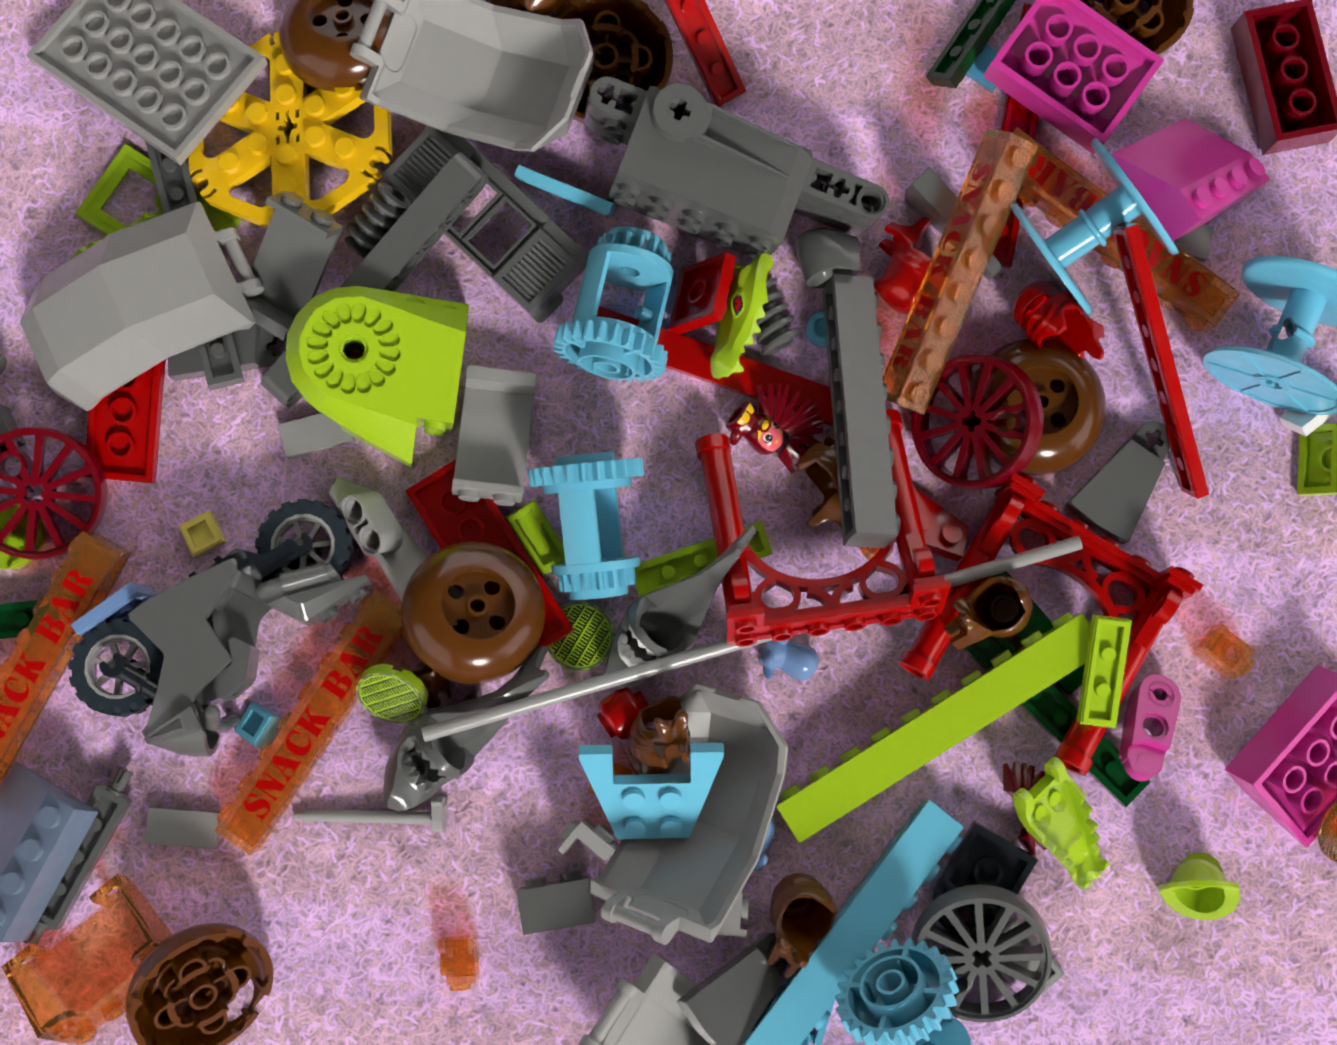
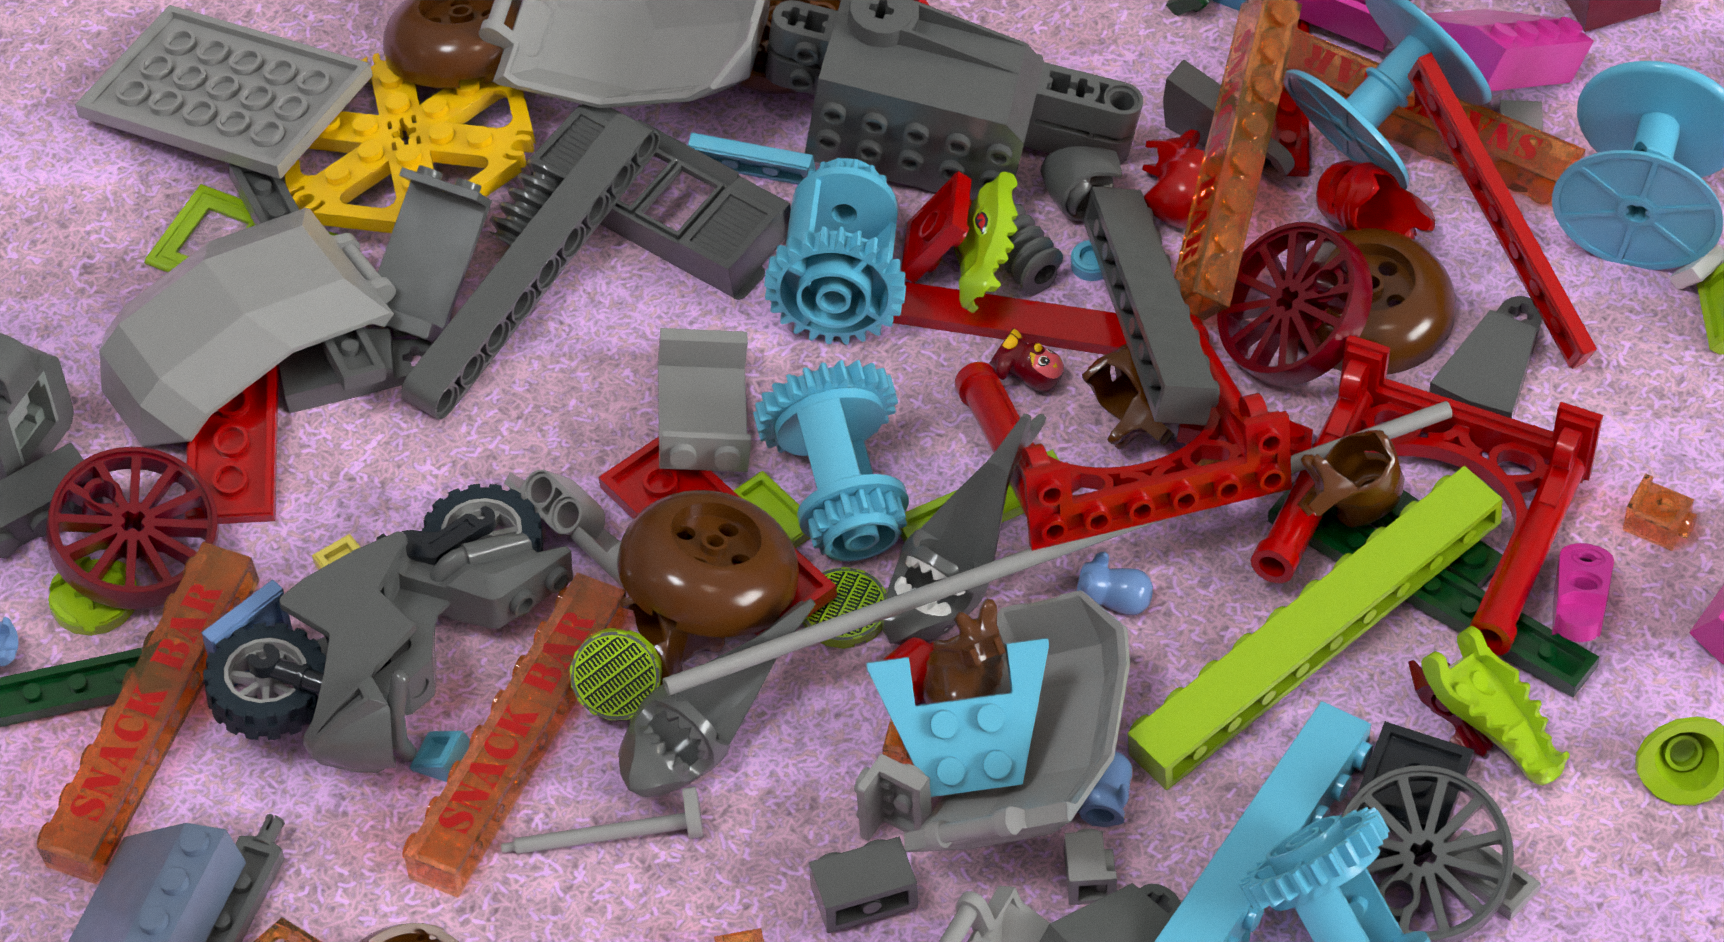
camera: 10 degrees left, 30 degrees down
(182, 828) = (356, 879): light grey tile -> none
(312, 435) = (476, 440): light grey tile -> none
(402, 378) = (557, 341): lime animal -> none
(793, 420) = (1075, 346): dark red hair -> none
(801, 917) = (1181, 841): reddish brown piece -> none
(1104, 671) = (1503, 519): lime tile -> none

